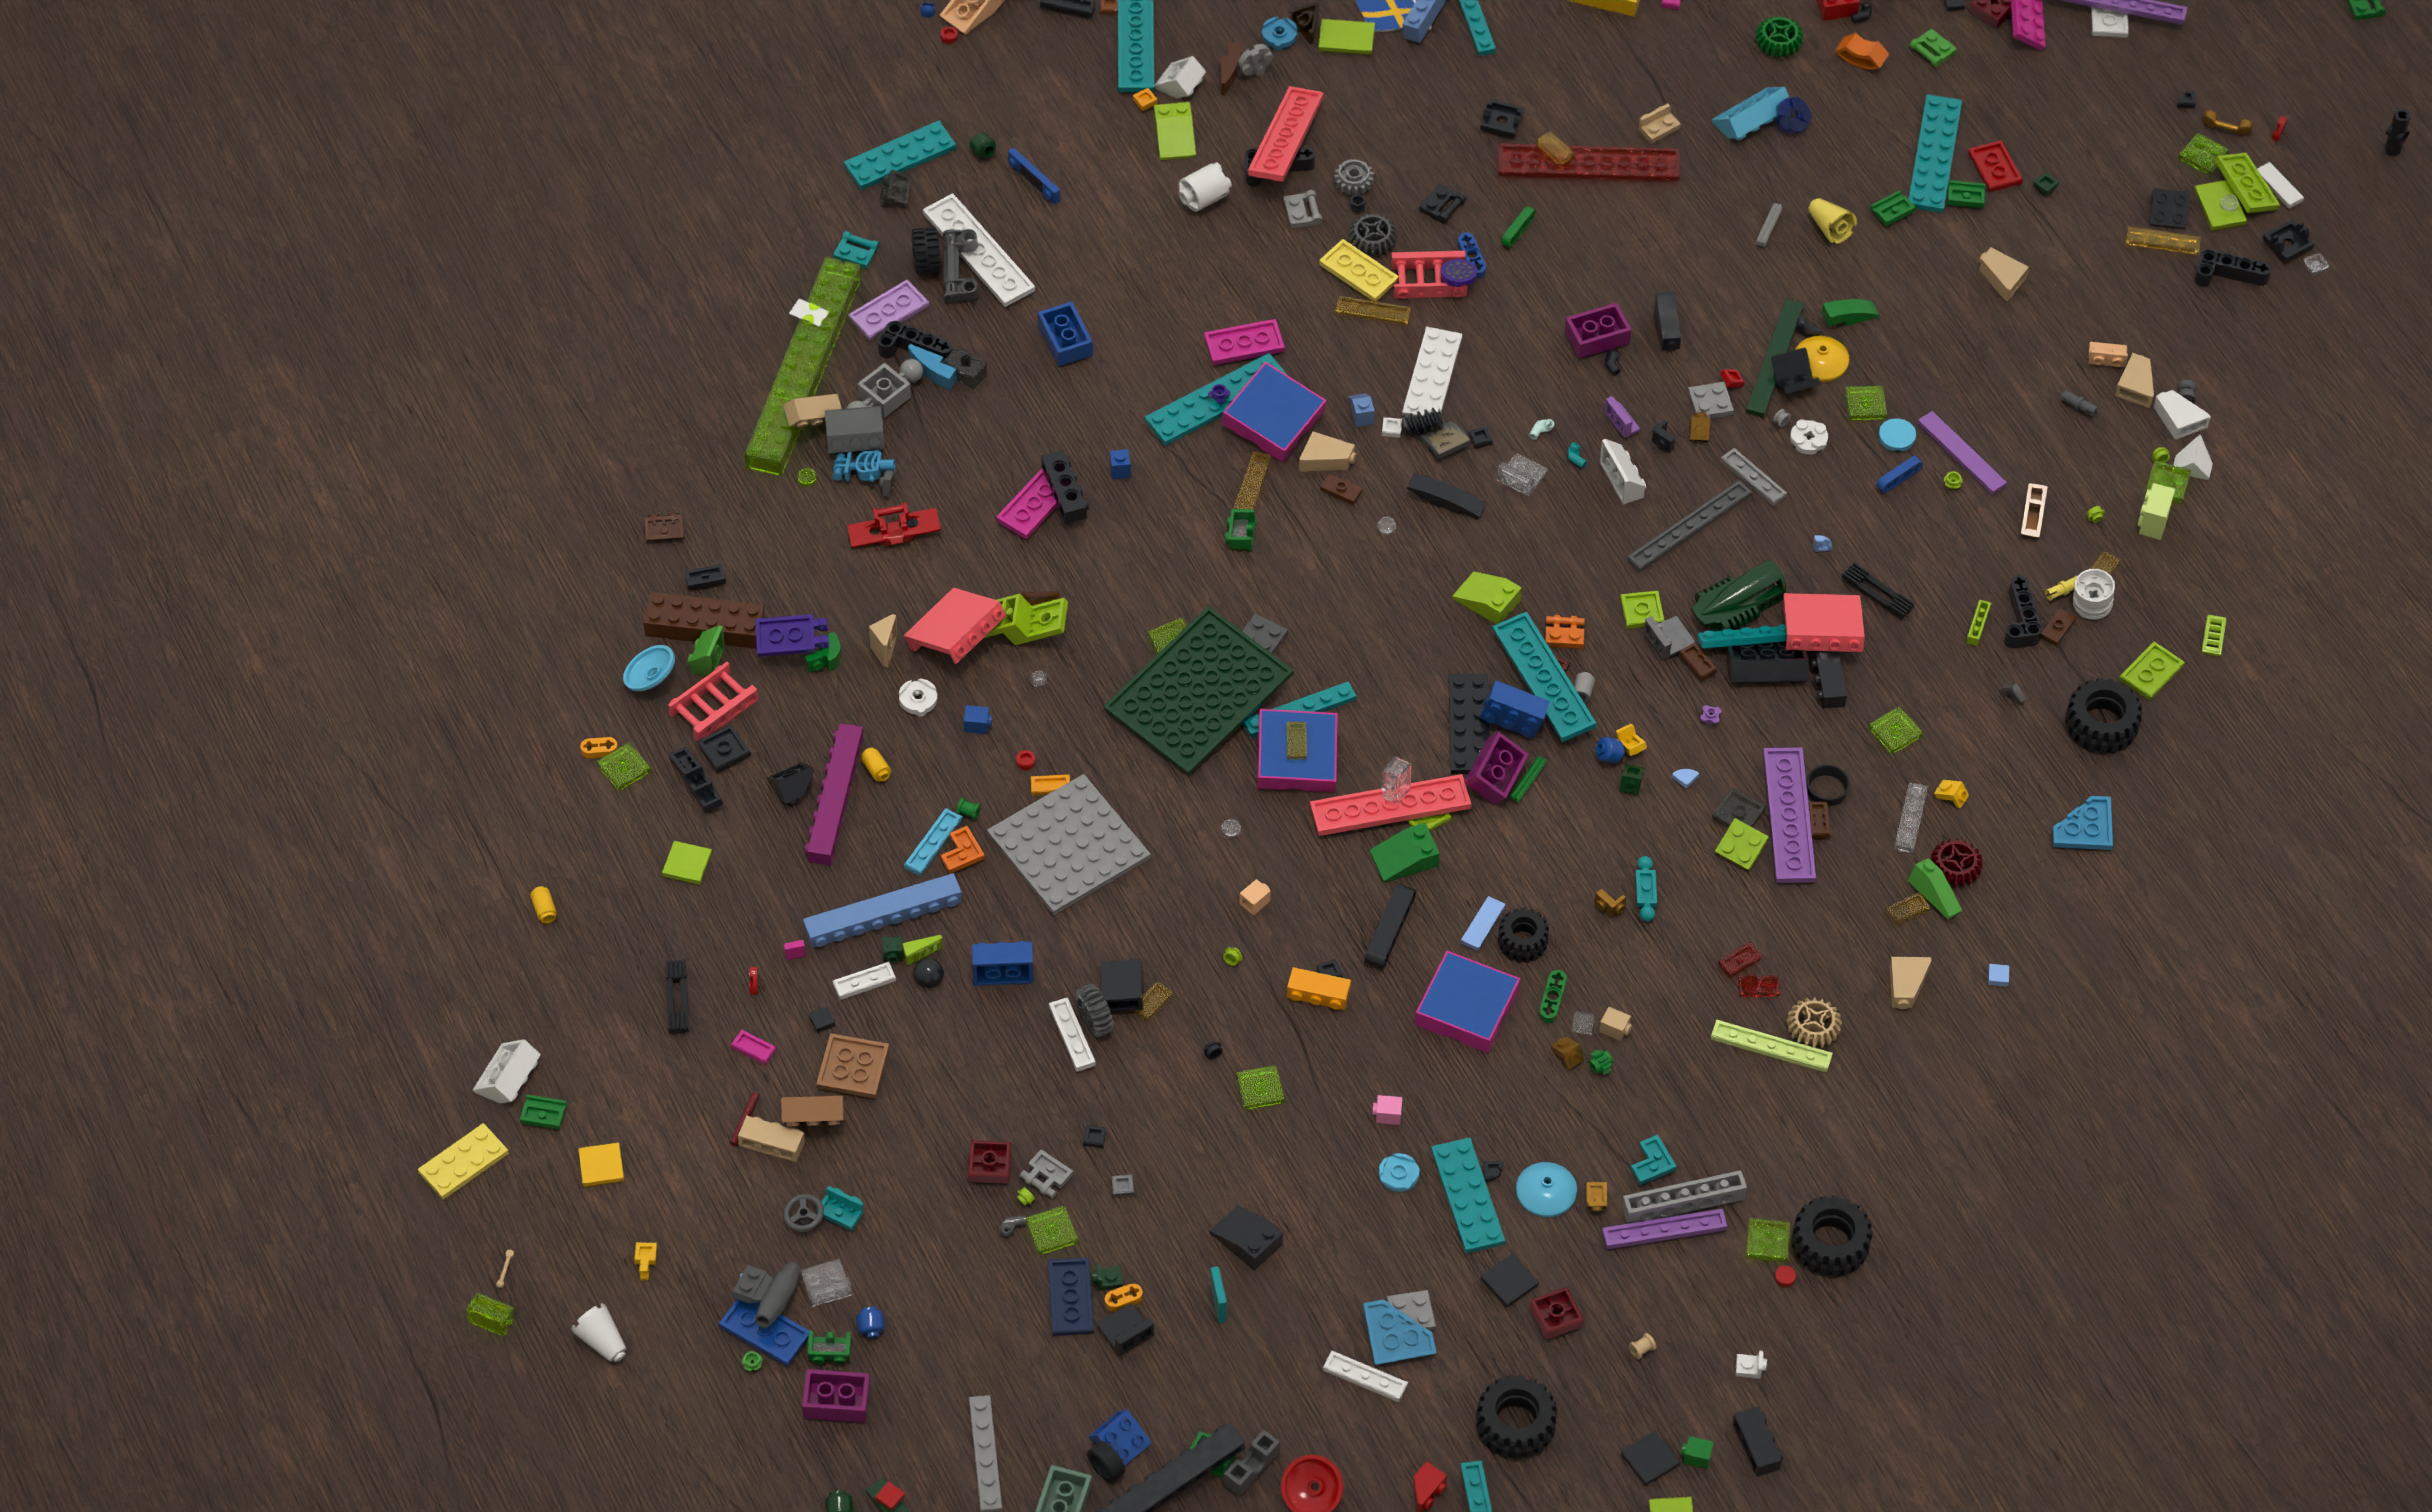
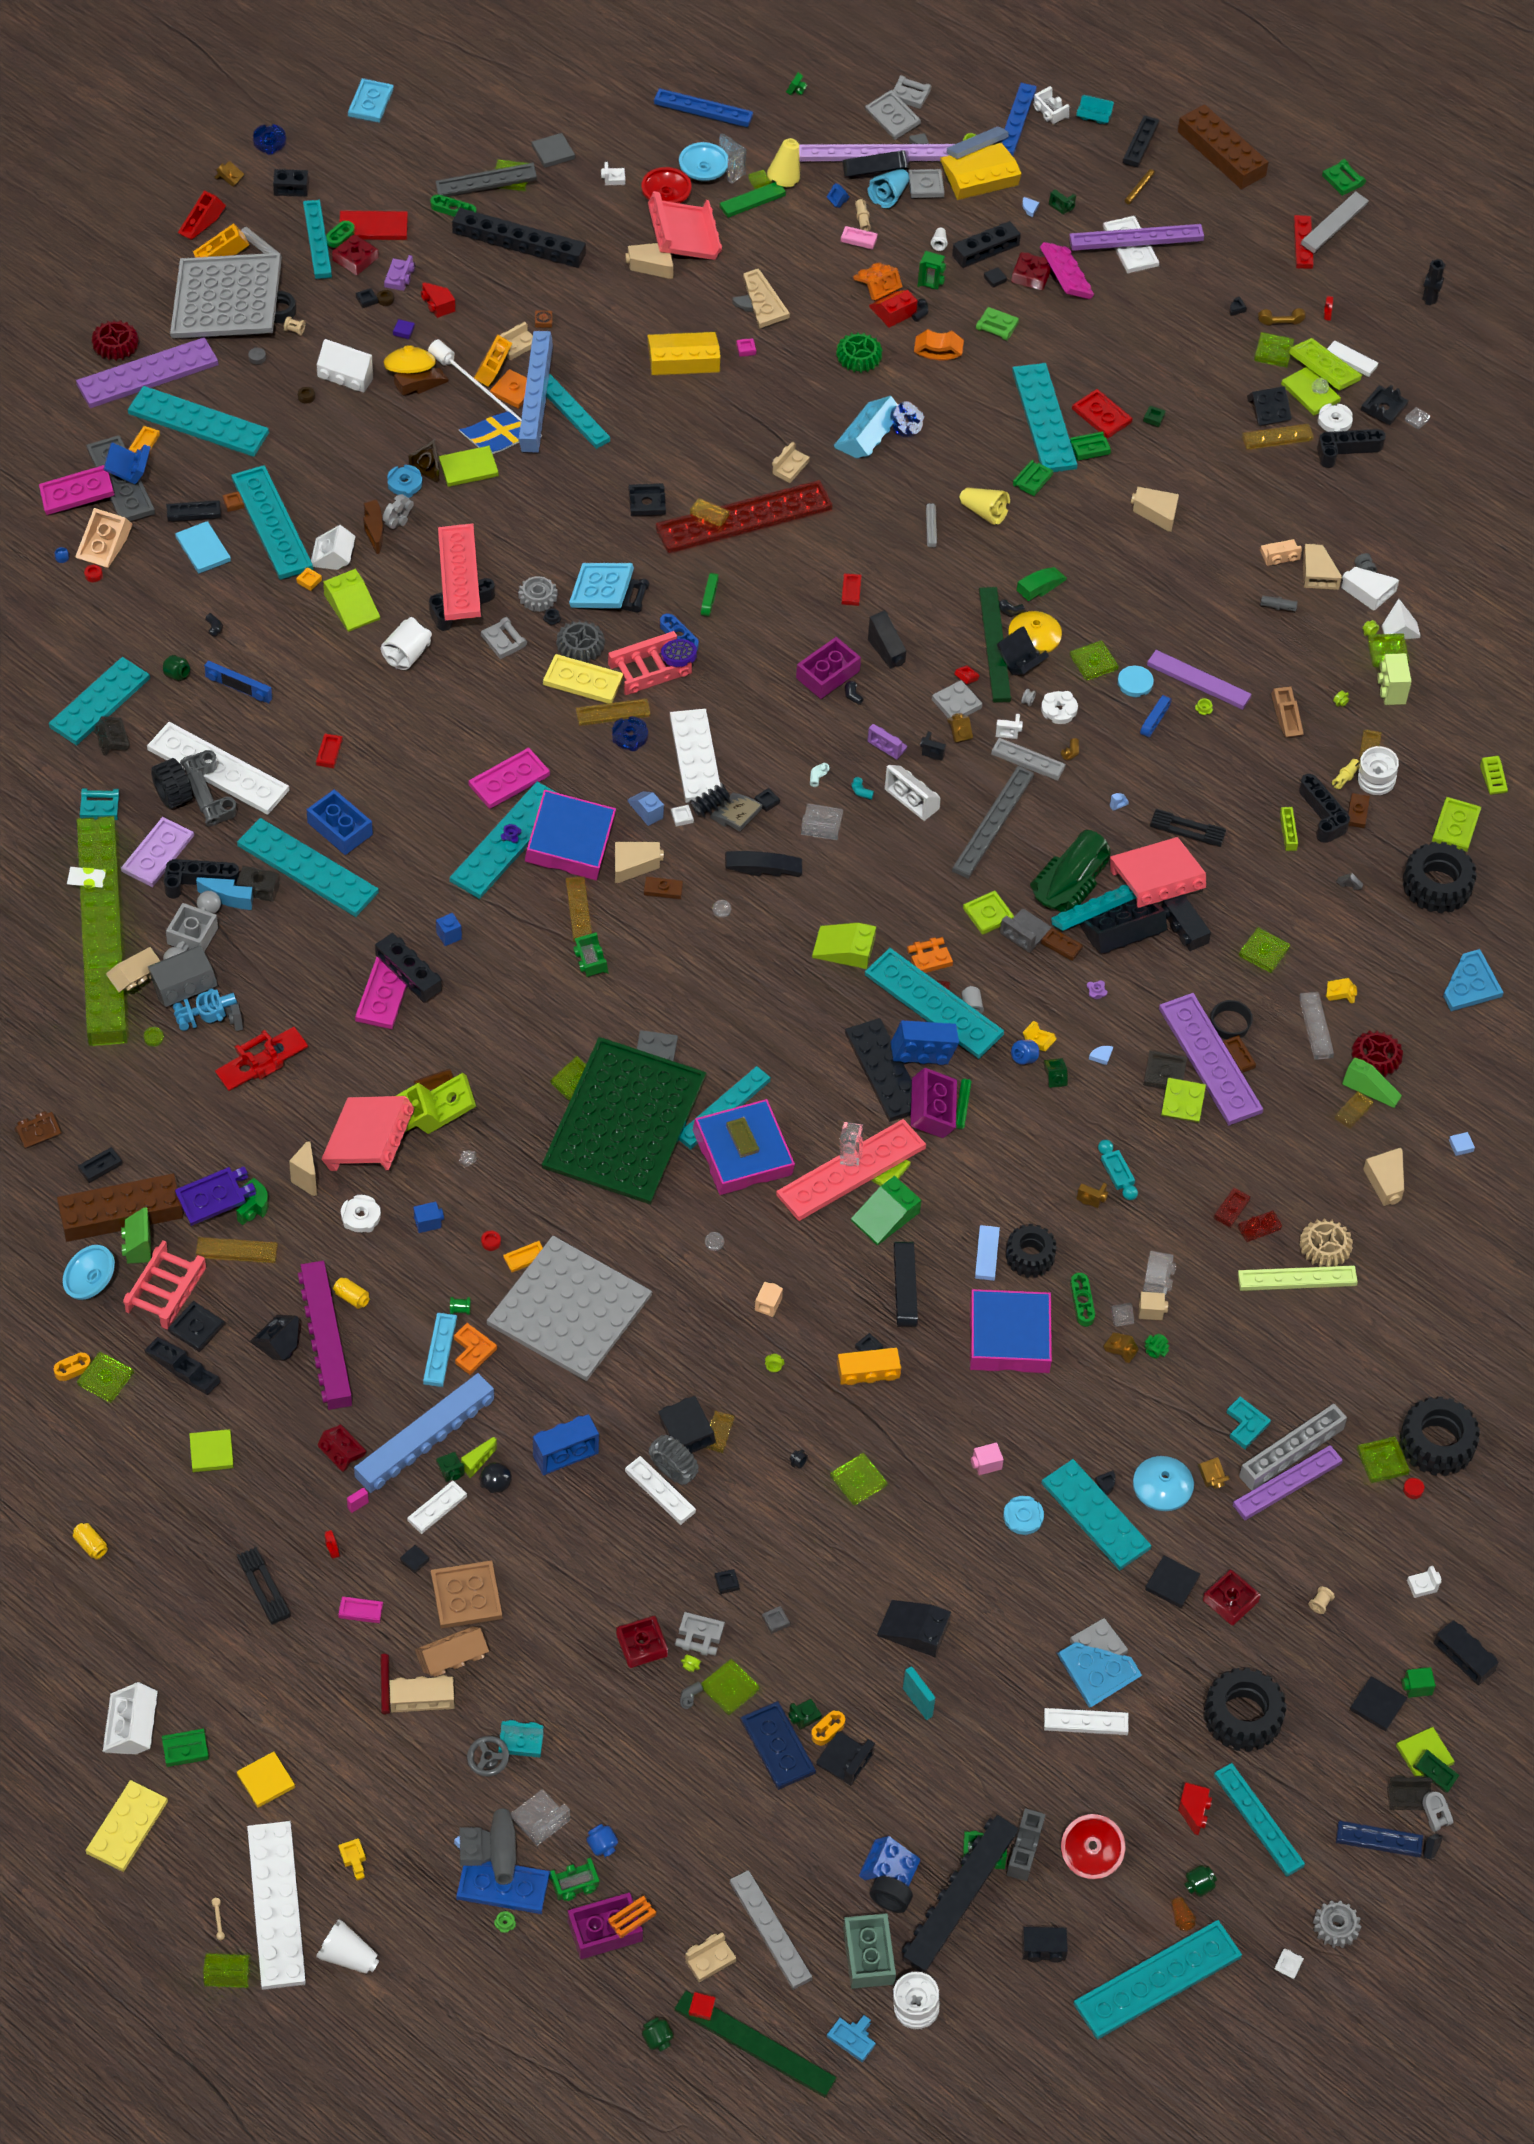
camera: 25 degrees left, 0 degrees up
(560, 1275) = (276, 1905): none -> white plate
(792, 692) = (237, 1250): none -> clear yellow tile
(802, 897) = (340, 1447): none -> dark red bracket
(860, 1391) = (646, 1906): none -> orange tile
(918, 1457) = (709, 1957): none -> tan bracket
(1019, 367) = (308, 867): none -> teal plate
(1038, 117) = (216, 625): none -> black arm
(1061, 40) = (203, 547): none -> medium azure tile
(1089, 265) = (329, 750): none -> red tile
(1376, 343) = (633, 741): none -> clear blue plate
(1417, 187) = (601, 585): none -> medium azure plate
(1636, 996) = (1158, 1273): none -> clear brick
(1660, 263) = (851, 589): none -> red tile
(1747, 442) = (1009, 729): none -> white bracket
(1796, 484) = (1071, 752): none -> pearl gold arm
(2235, 247) = (1329, 424): none -> white plate
(2288, 55) = (1302, 228): none -> red plate
(2329, 44) = (1334, 222): none -> light grey tile

